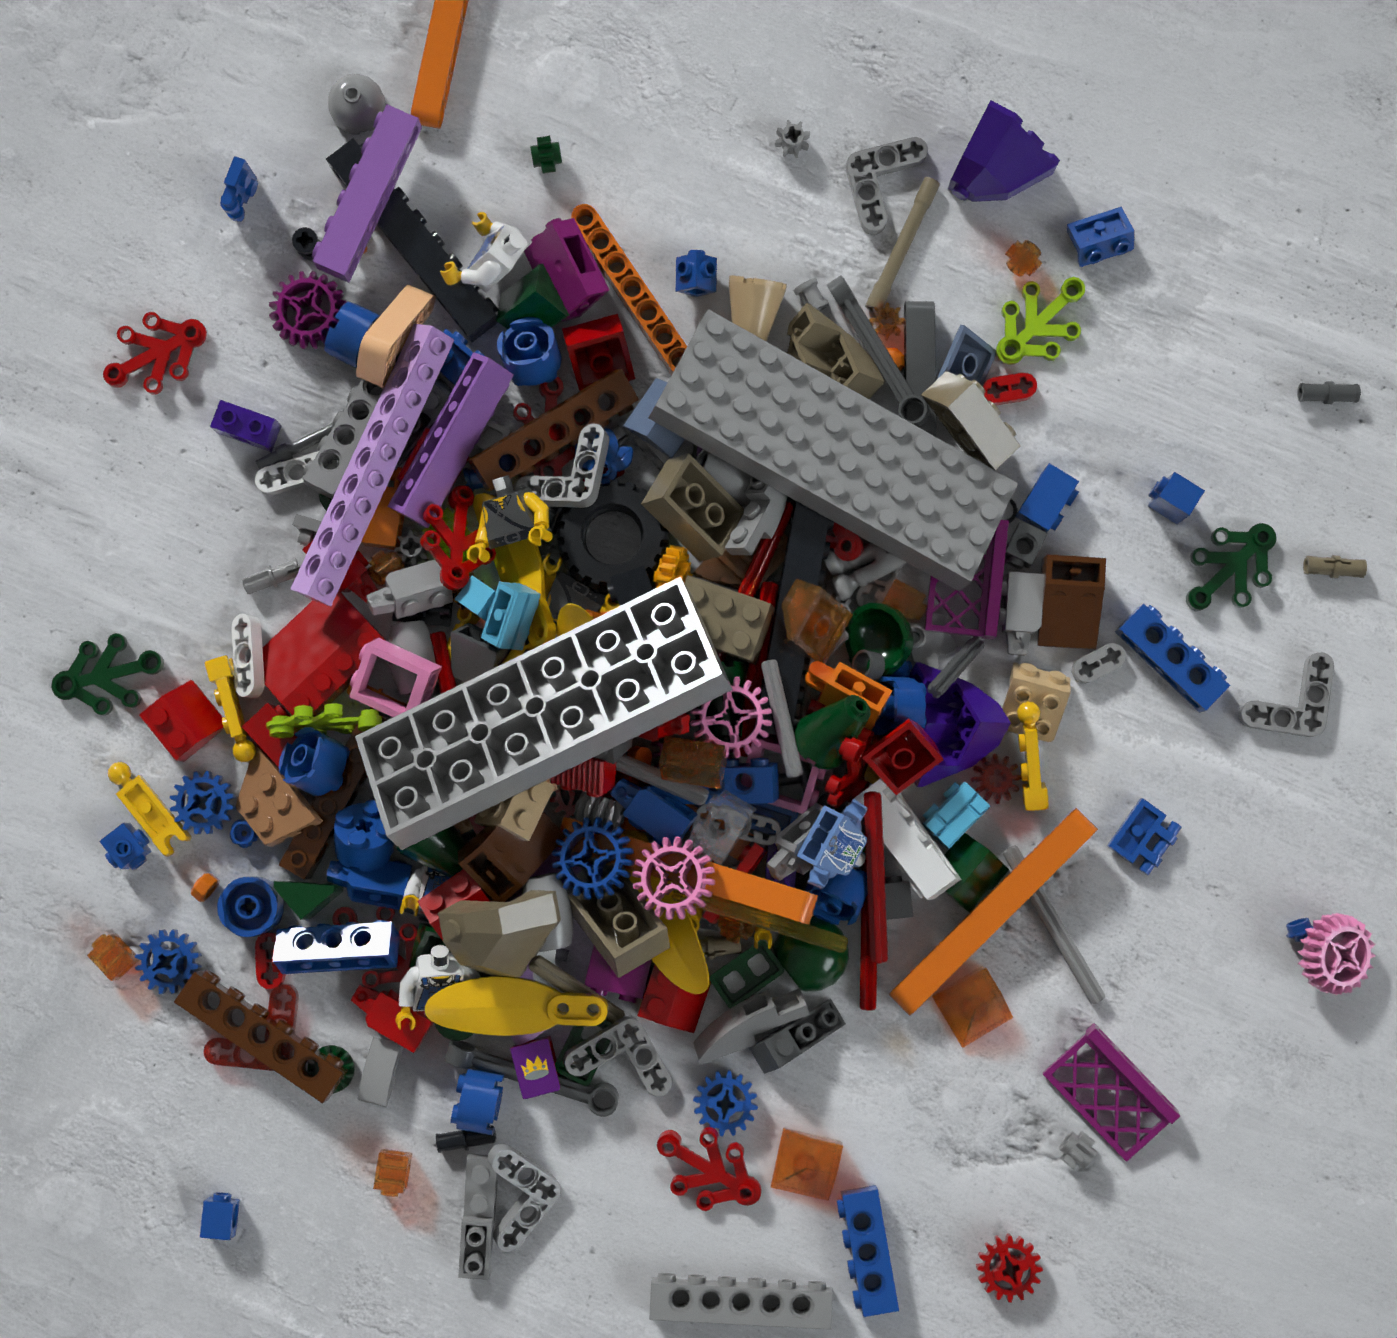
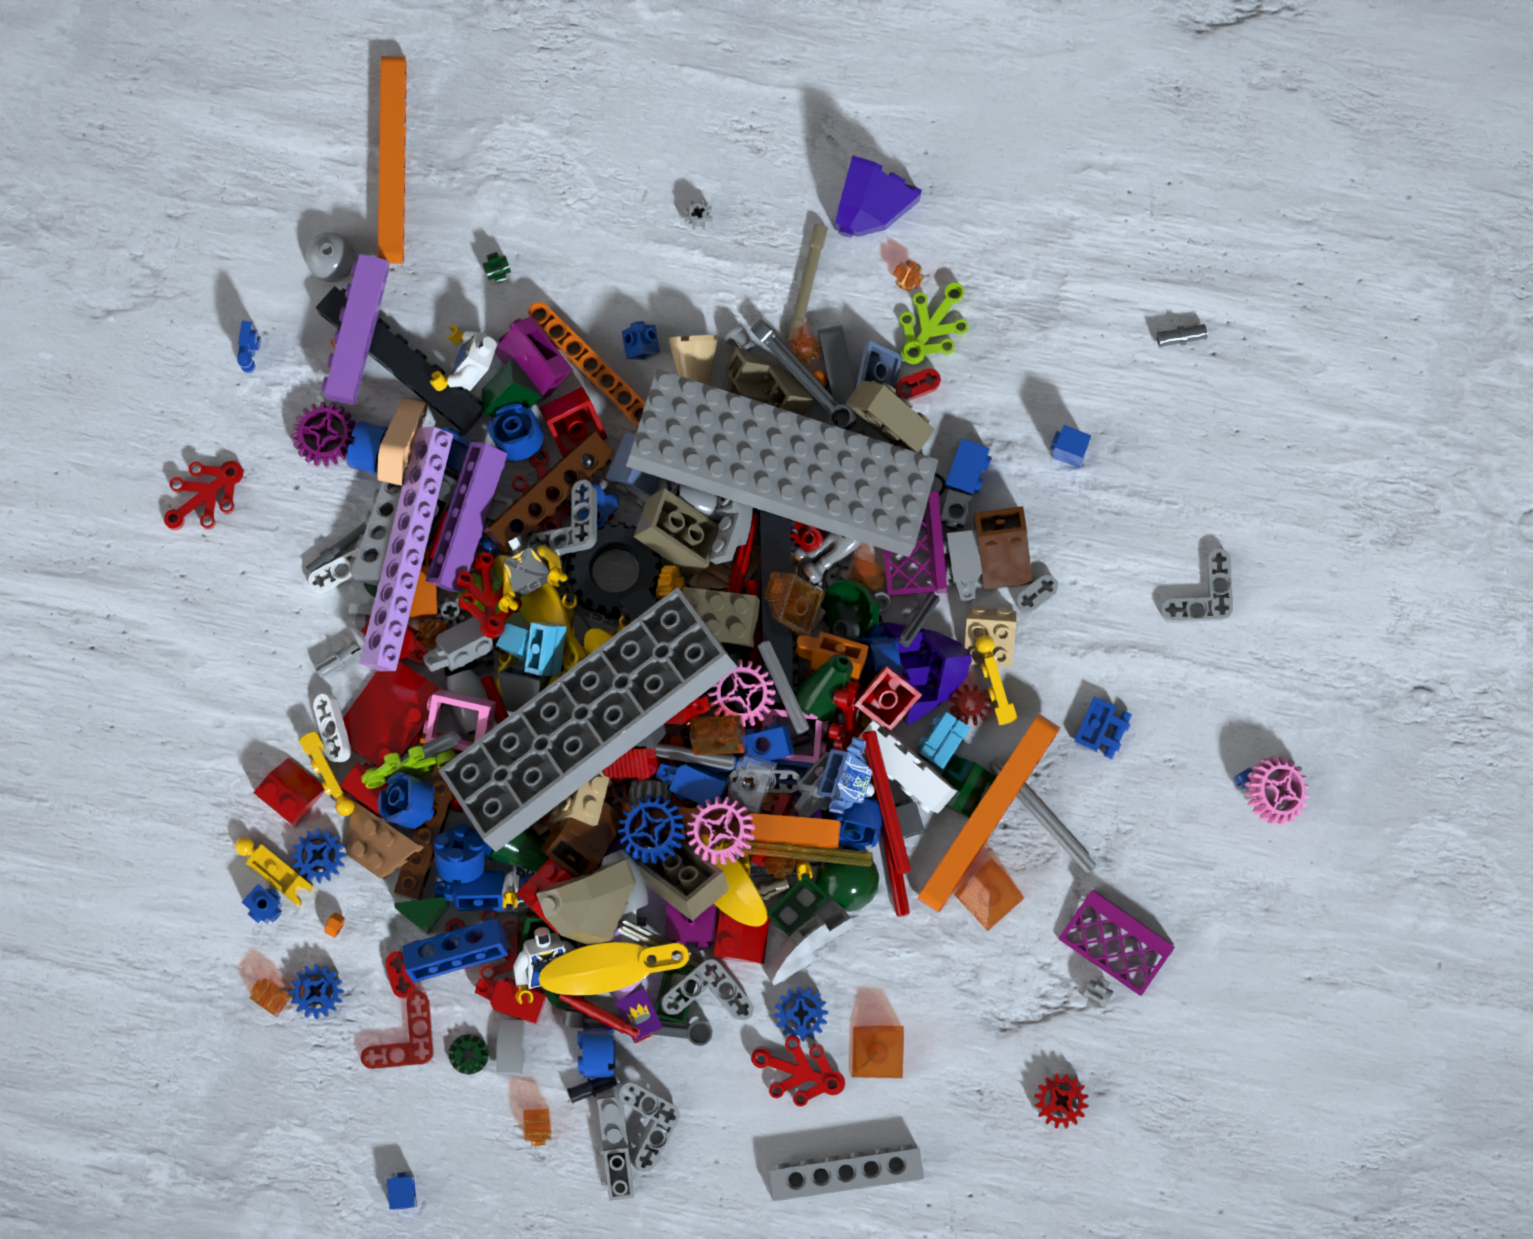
camera: 10 degrees left, 5 degrees down
(102, 675) = (213, 768): dark green plant -> none
(195, 1001) = (346, 1016): reddish brown brick -> none
(237, 837) = (351, 875): blue plate -> none
(245, 426) = (292, 539): dark purple brick -> none
(249, 923) = (363, 926): blue brick -> none
(300, 238) = (306, 378): black bush -> none
(361, 705) = (438, 745): none -> dark grey axle
(493, 1062) = (601, 1015): none -> red piece
(797, 1037) = (849, 948): dark grey slope -> none
(869, 177) = (767, 232): light grey beam -> none
(883, 1297) = (934, 1071): blue brick -> none
(1101, 236) = (969, 244): blue bracket -> none
(1200, 695) = (1102, 590): blue brick -> none
(1235, 564) = (1132, 490): dark green plant -> none
(1335, 566) = (1215, 476): dark tan pin -> none

